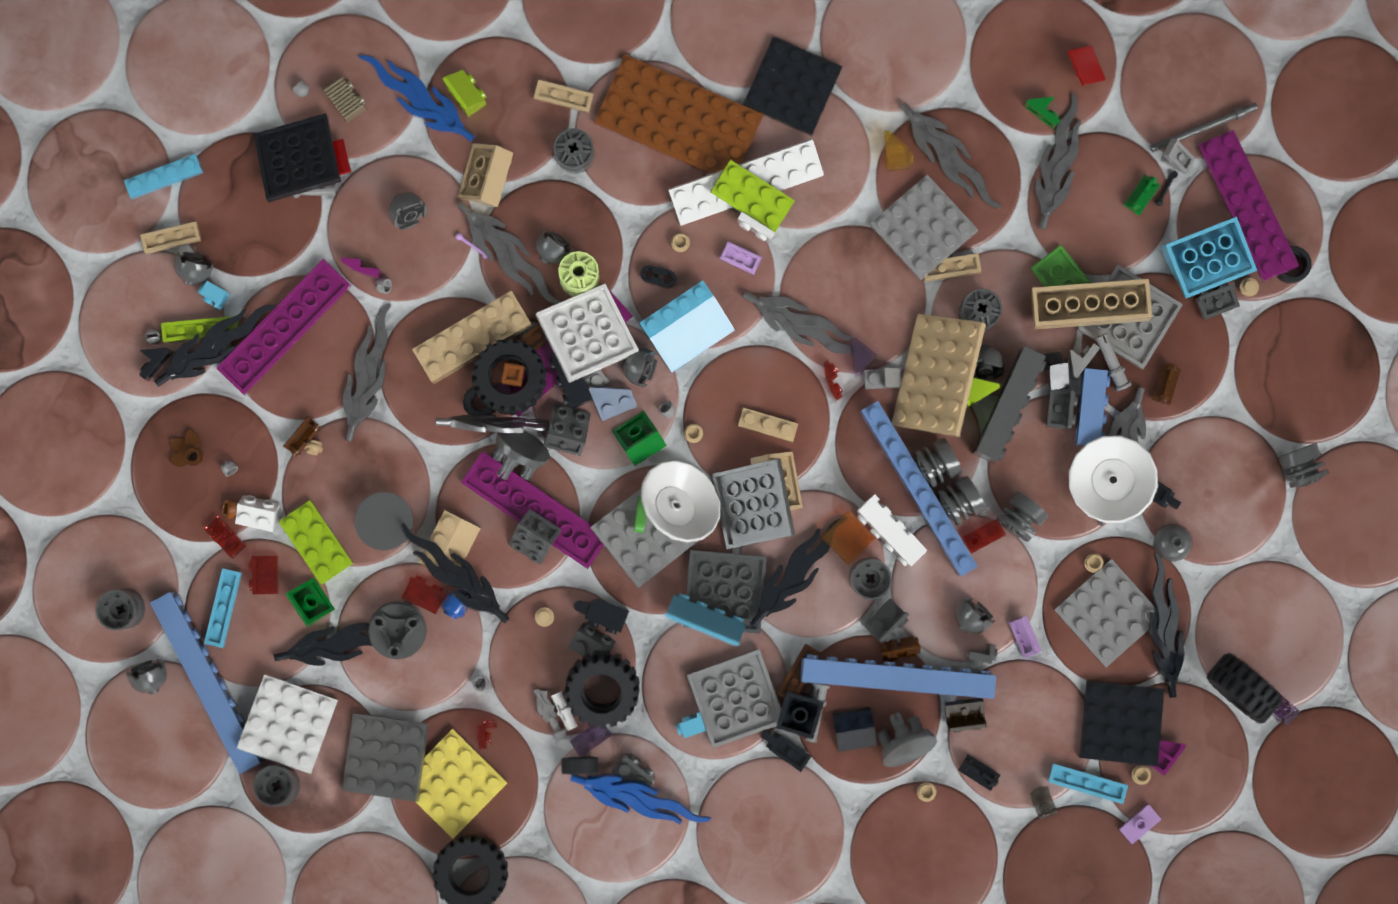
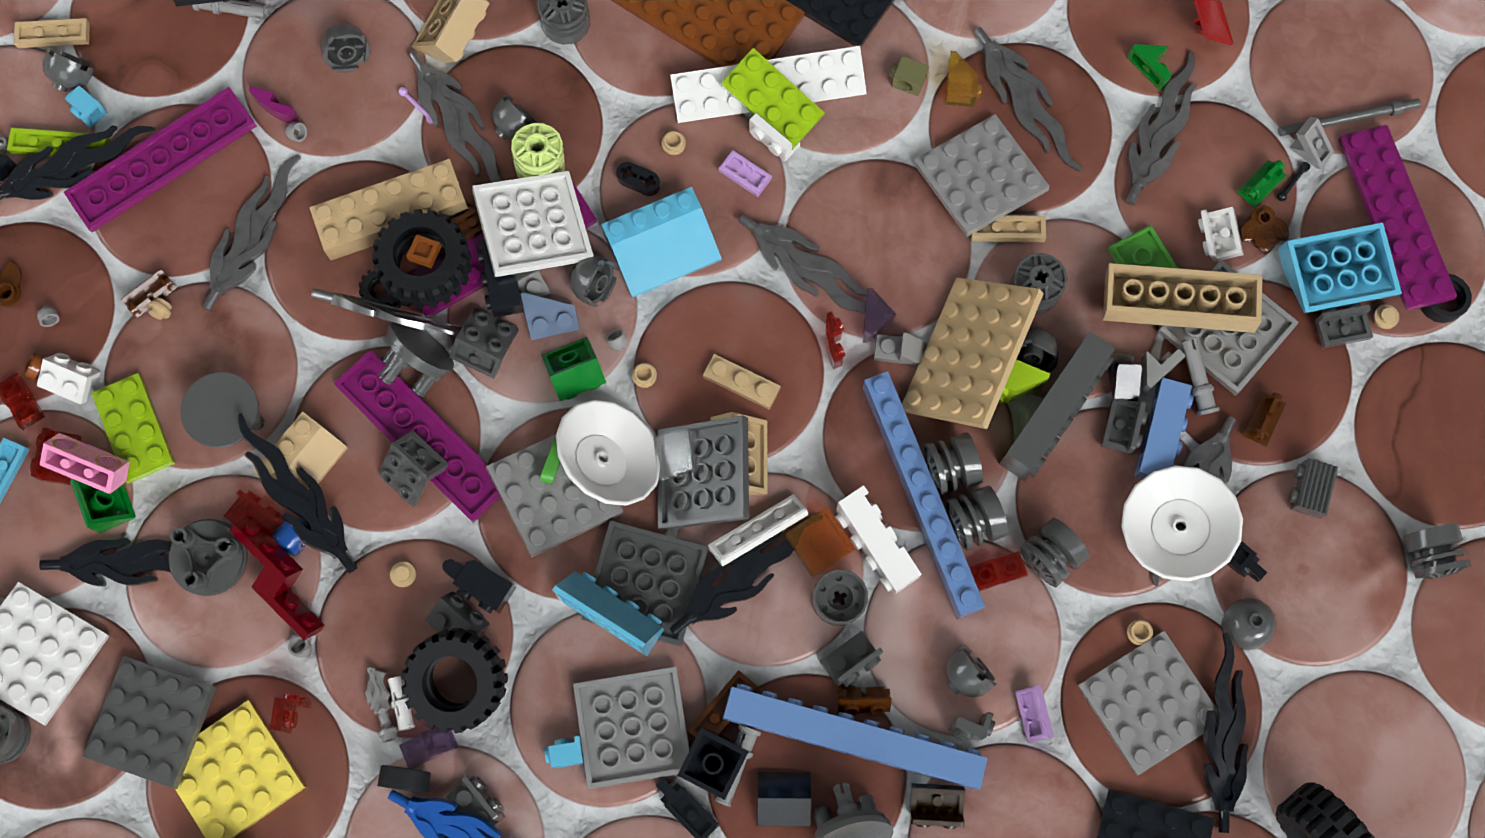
camera: 10 degrees right, 10 degrees down
(292, 578) = (84, 463): none -> bright pink piece
(453, 639) = (277, 578): none -> dark red bracket
(728, 491) = (674, 453): none -> clear piece
(804, 535) = (758, 530): none -> white tile
(854, 154) = (909, 75): none -> olive brick
(1115, 243) = (1221, 234): none -> white bracket
(1150, 235) = (1264, 233): none -> reddish brown plate
(1208, 431) = (1313, 487): none -> dark grey brick

